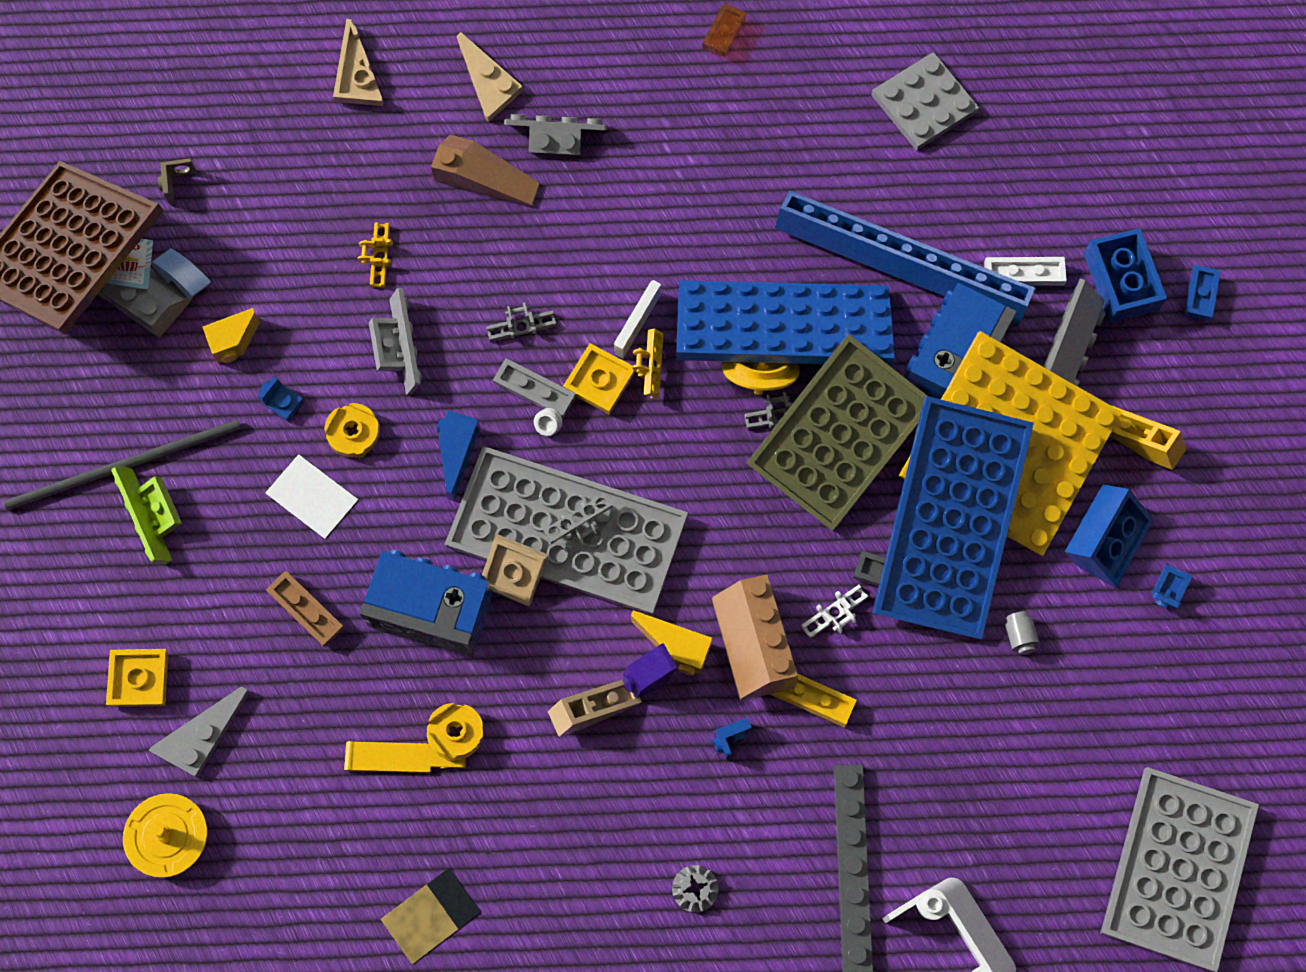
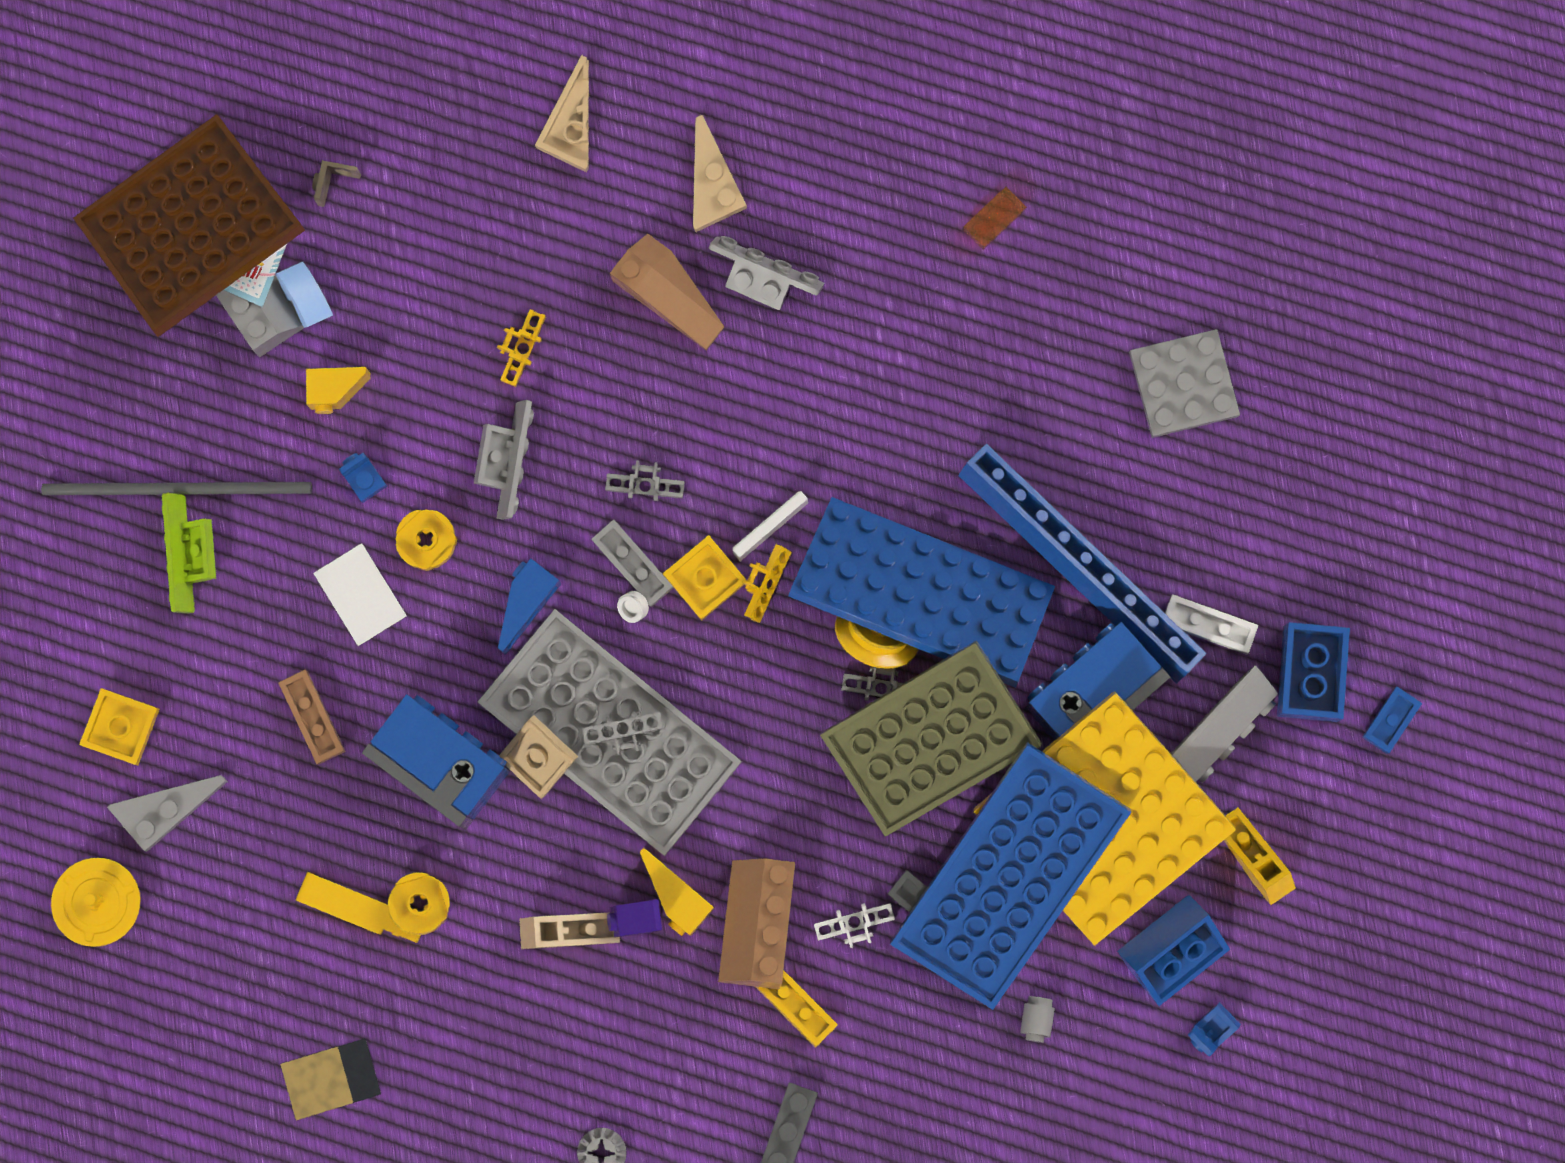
camera: 25 degrees right, 10 degrees up
(735, 732) = (700, 1010): blue bracket -> none

